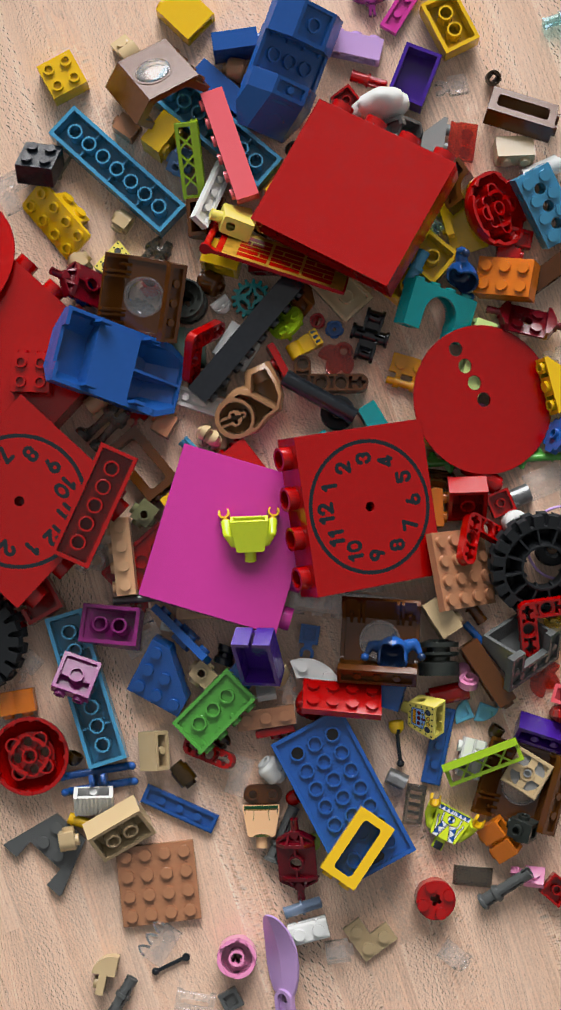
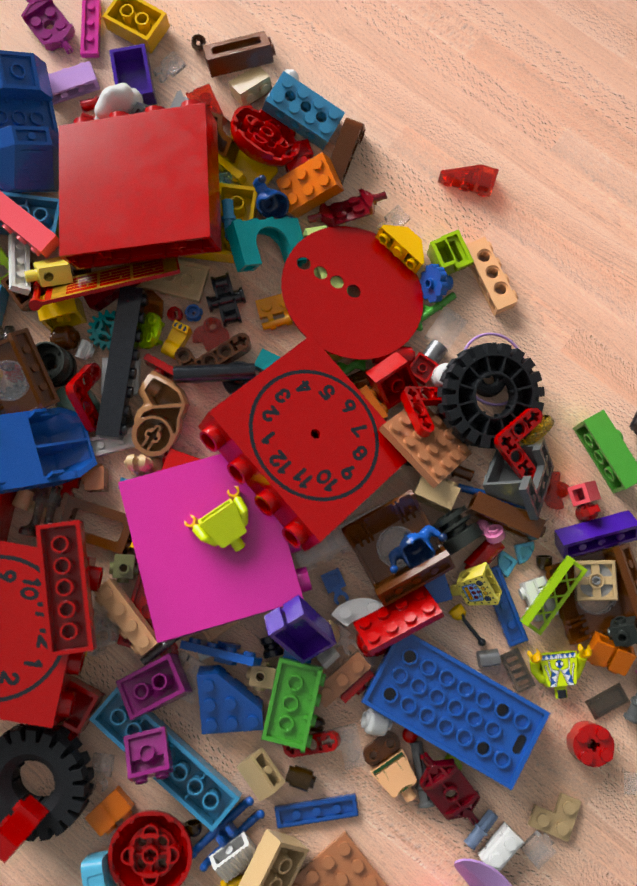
camera: 35 degrees left, 5 degrees down
(328, 864) = (483, 779): yellow piece -> none

